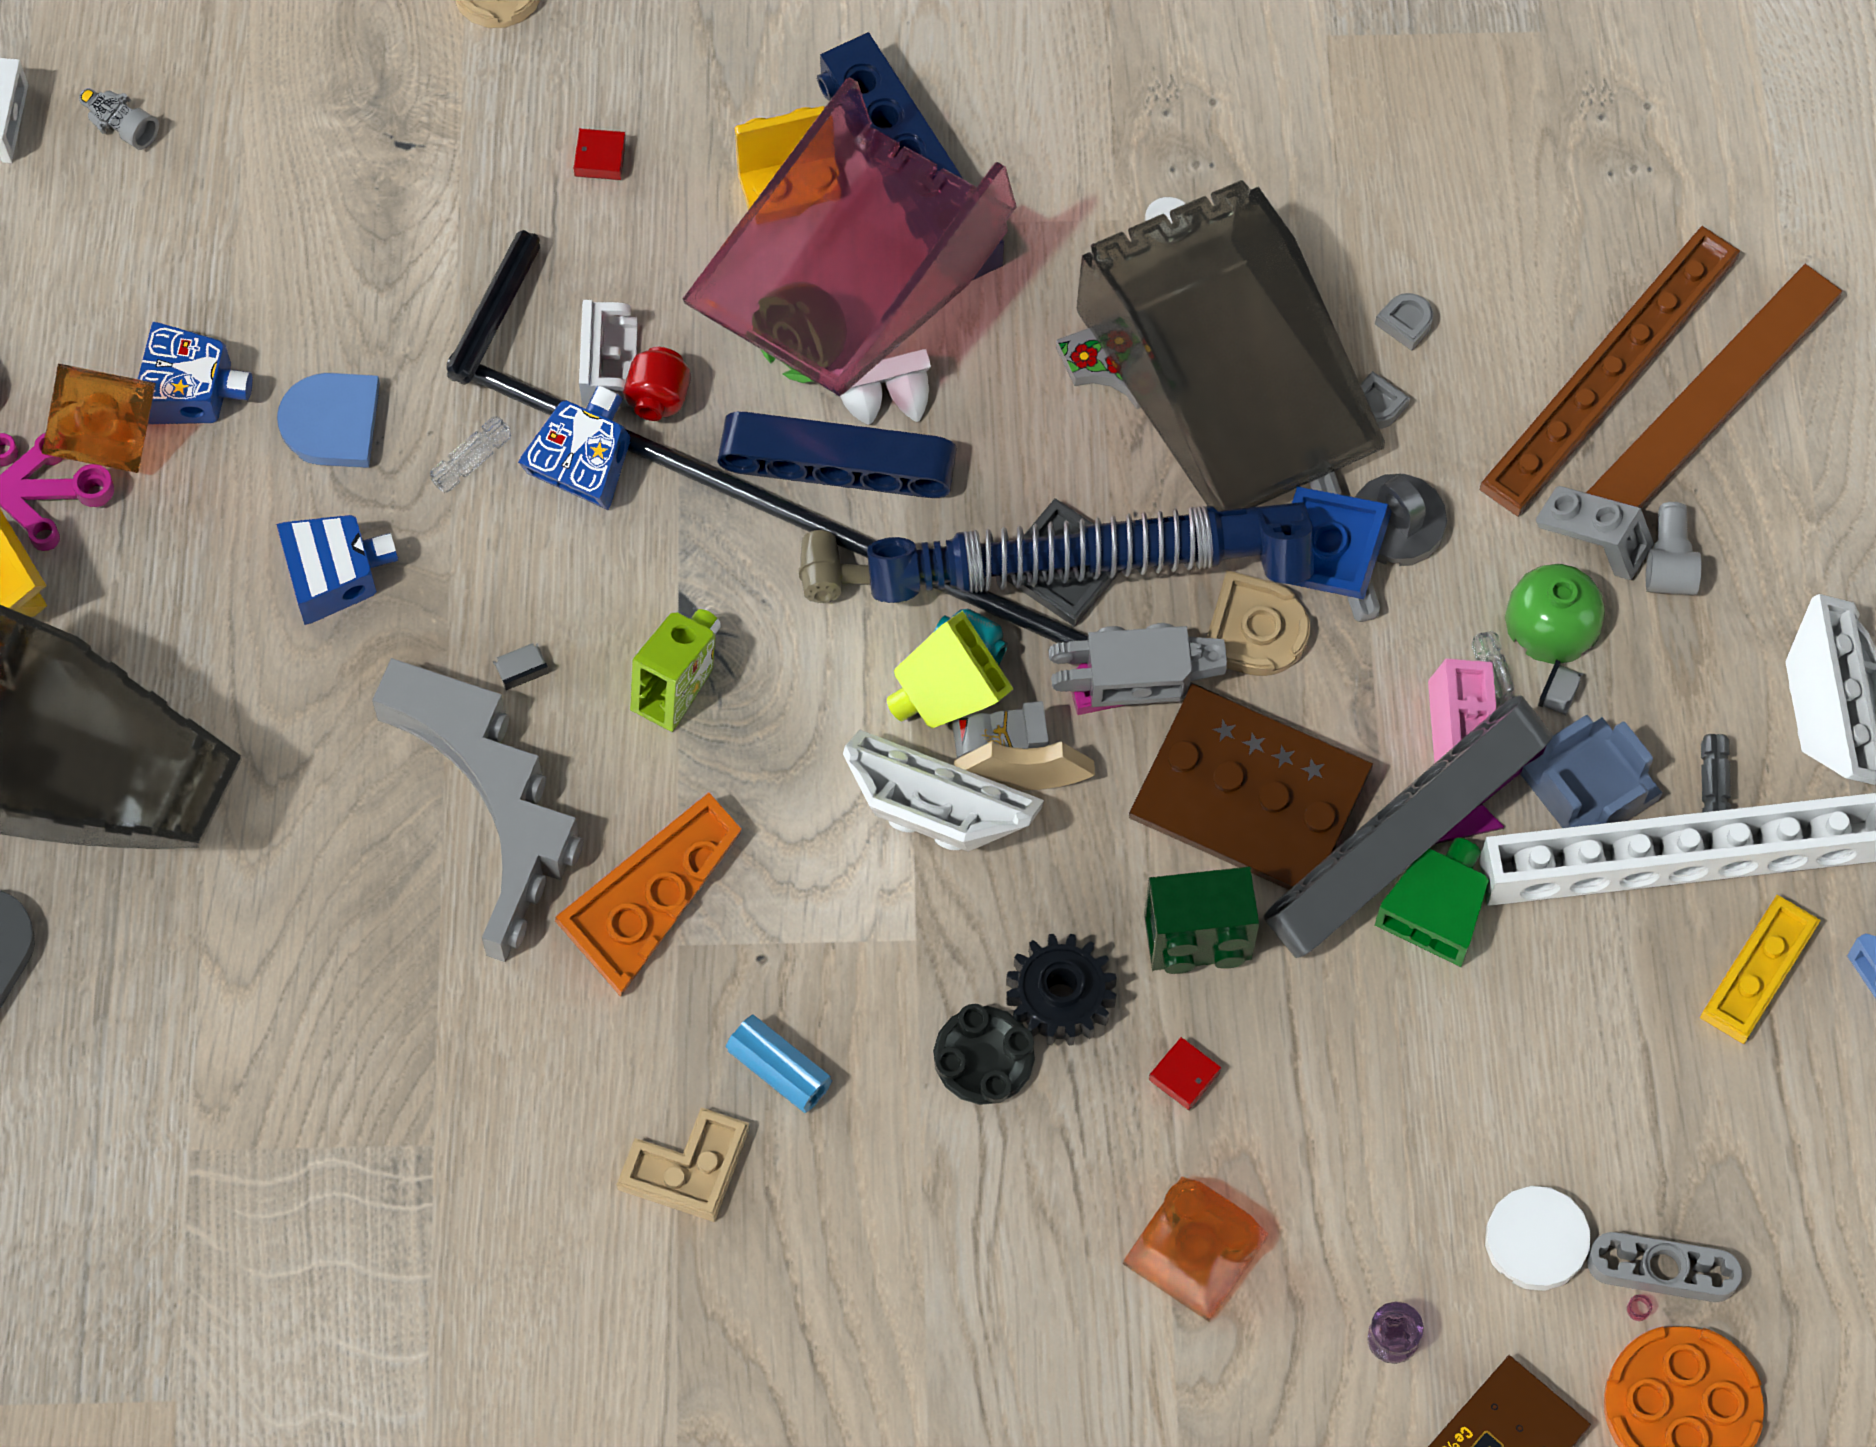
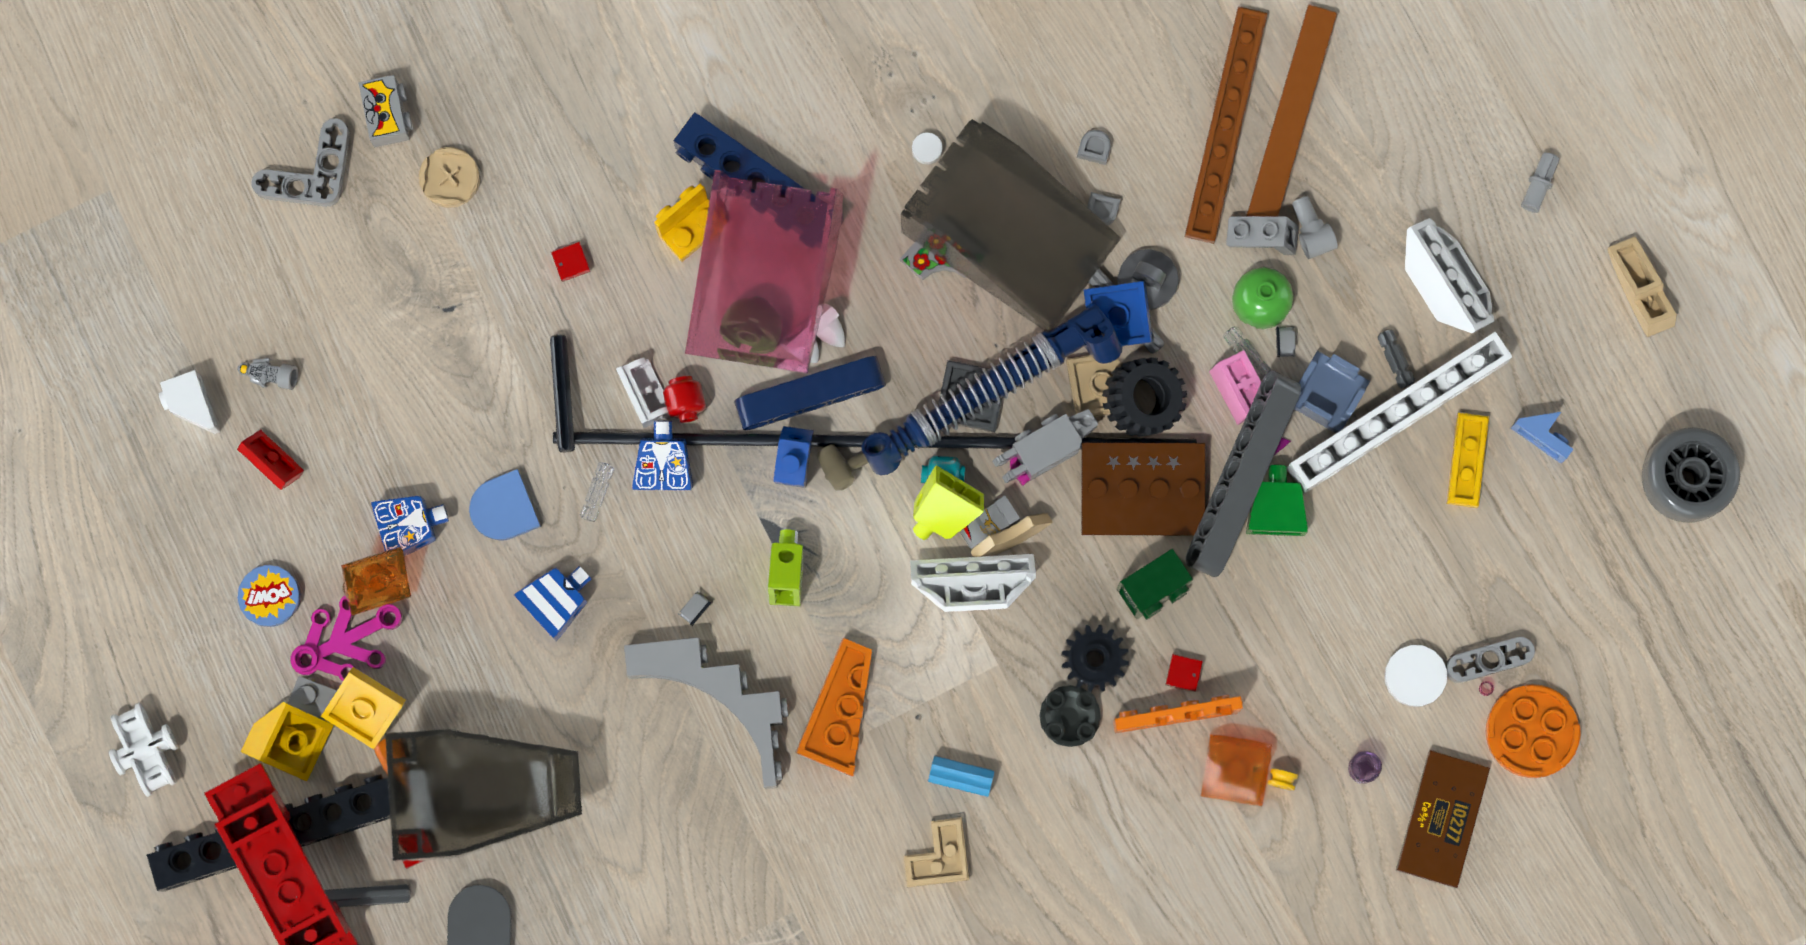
camera: 25 degrees left, 15 degrees up
(54, 218) = (270, 459): none -> red plate
(763, 523) = (793, 457): none -> blue torso
(1161, 1125) = (1187, 712): none -> orange wing
(1259, 1291) = (1282, 779): none -> yellow bush
(1340, 634) = (1167, 392): none -> black tyre

